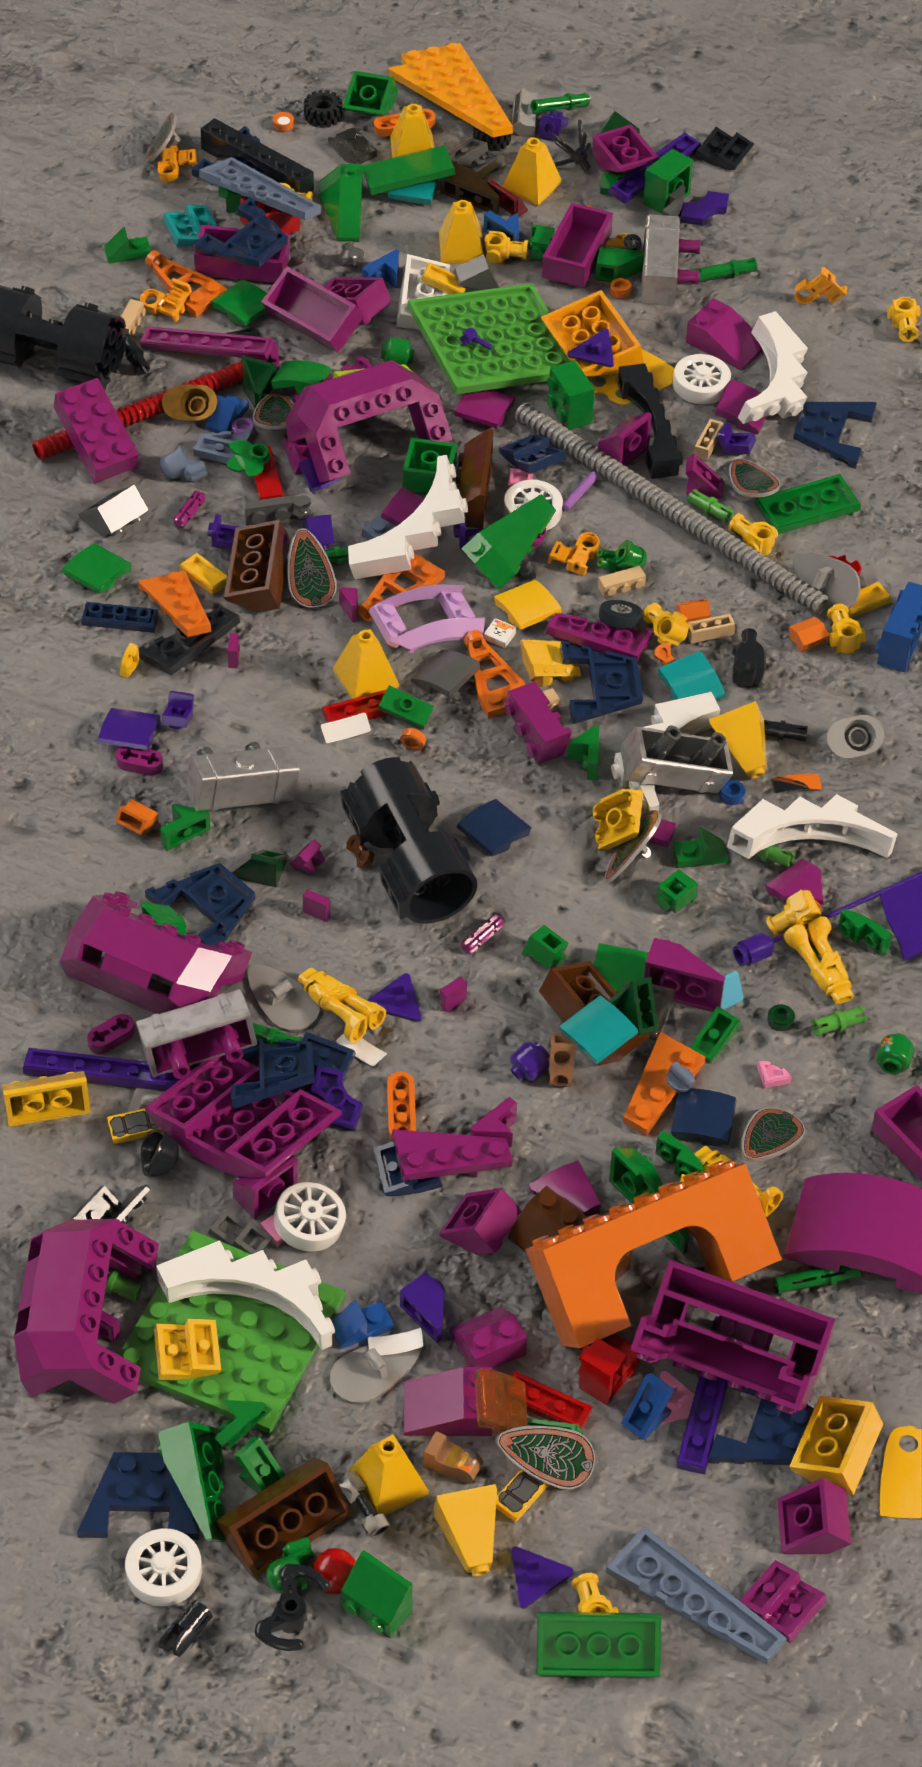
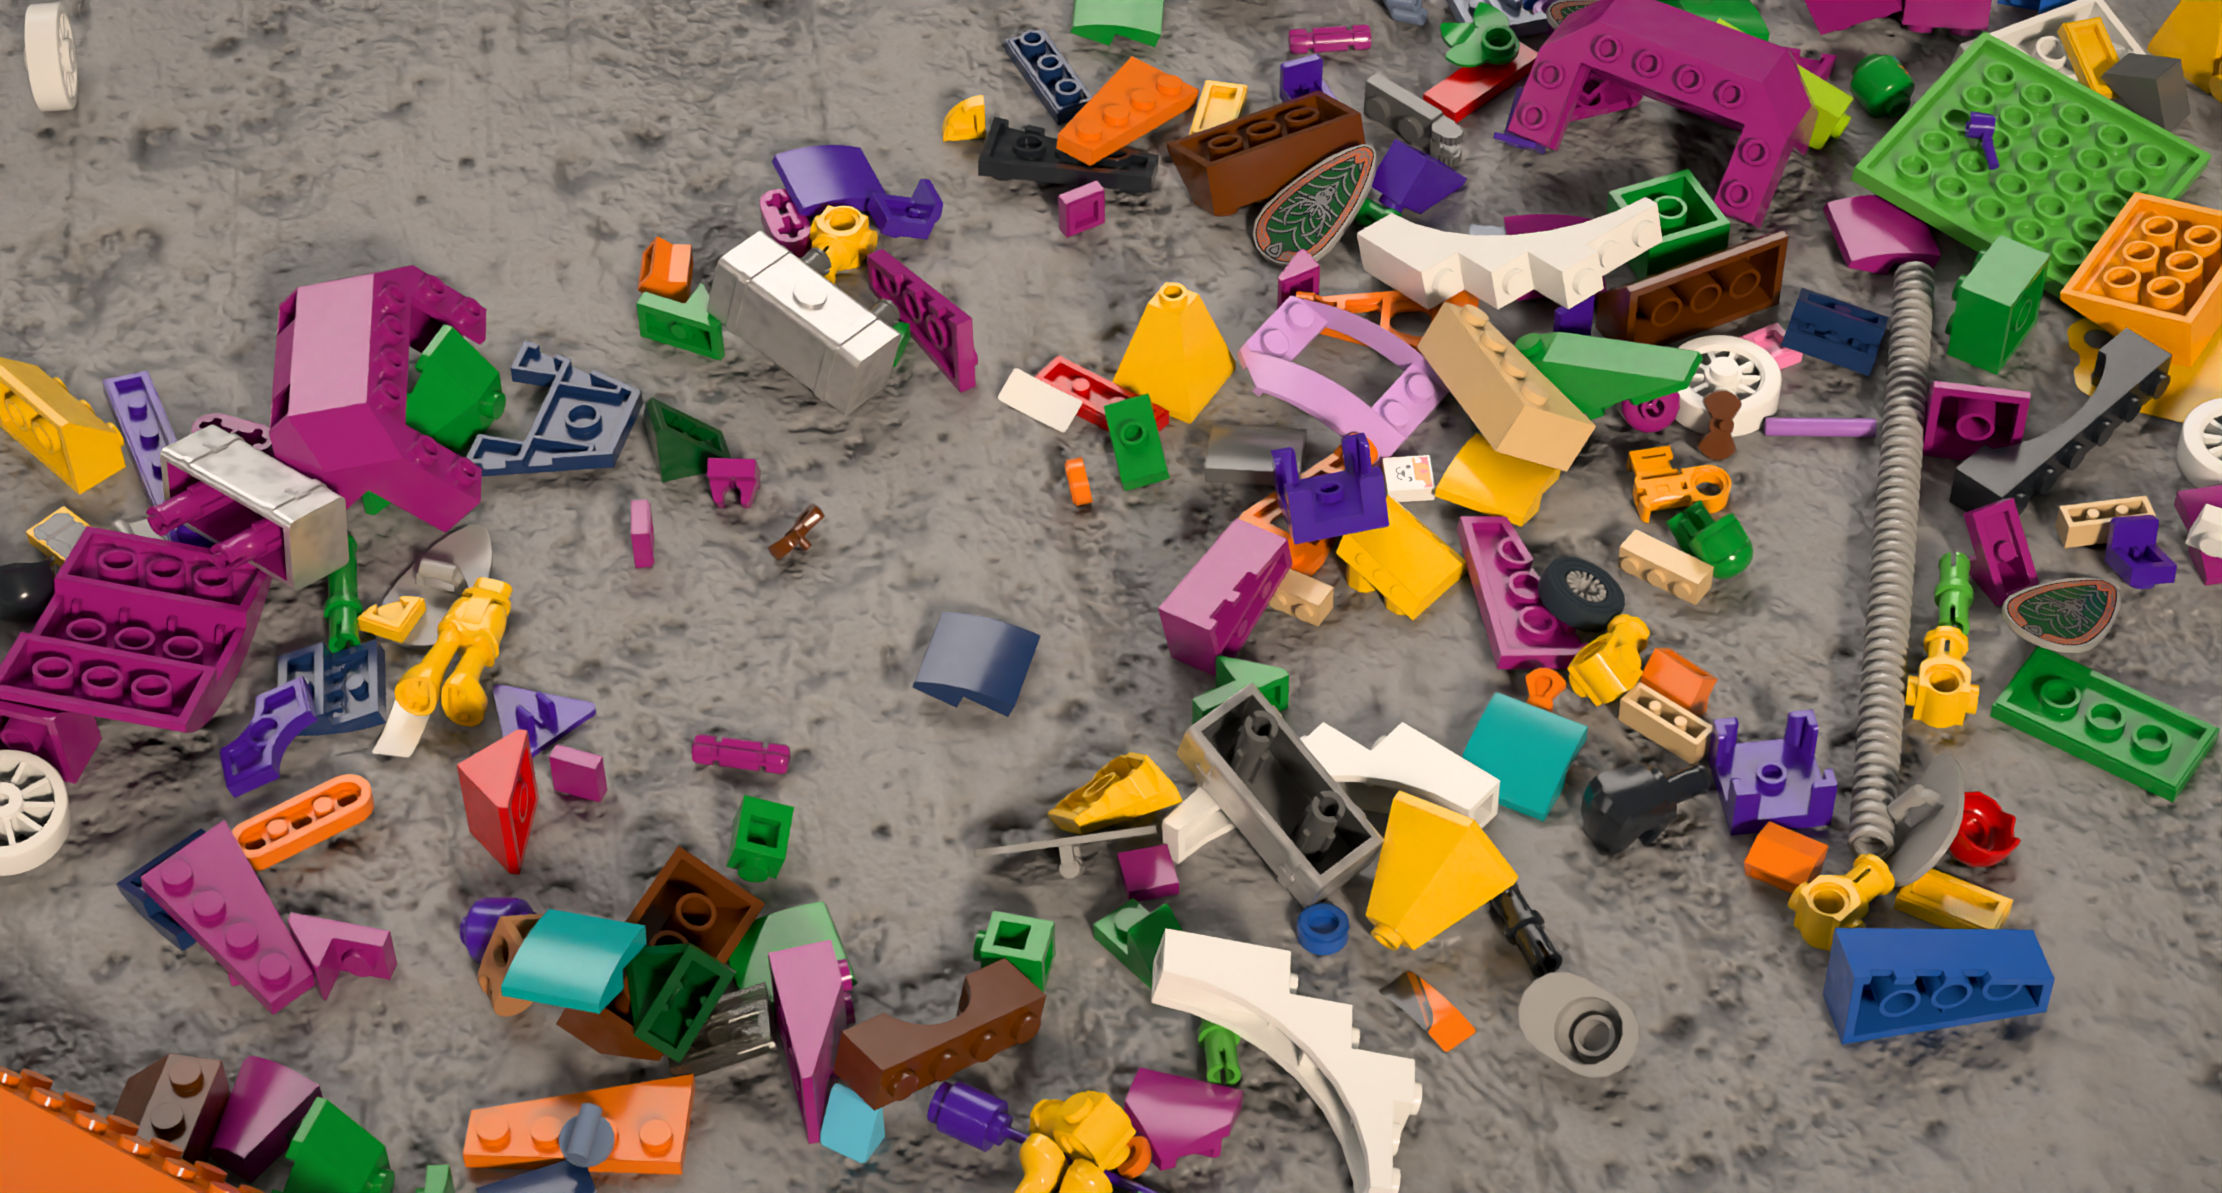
camera: 60 degrees right, 5 degrees down
(176, 745) = (844, 238): none -> yellow connector
(270, 733) = (934, 321): none -> magenta wing
(281, 1069) = (252, 637): dark blue wing -> none
(293, 1020) = (394, 619): none -> yellow tile
(427, 870) = (786, 593): black cylinder -> none
(463, 1024) = (501, 797): none -> red slope
(481, 1221) = (120, 1028): magenta slope -> none
(491, 568) = (1503, 390): none -> tan wedge
(510, 658) = (1334, 501): none -> dark purple panel
(565, 525) = (1718, 441): none -> reddish brown piece
(595, 350) = (2126, 281): dark purple piece -> none
(612, 678) = (1416, 658): dark blue wing -> none
(708, 915) = (894, 1058): none -> reddish brown arch
(716, 1034) = (748, 1156): green slope -> none
(763, 613) = (1771, 777): none -> dark purple panel

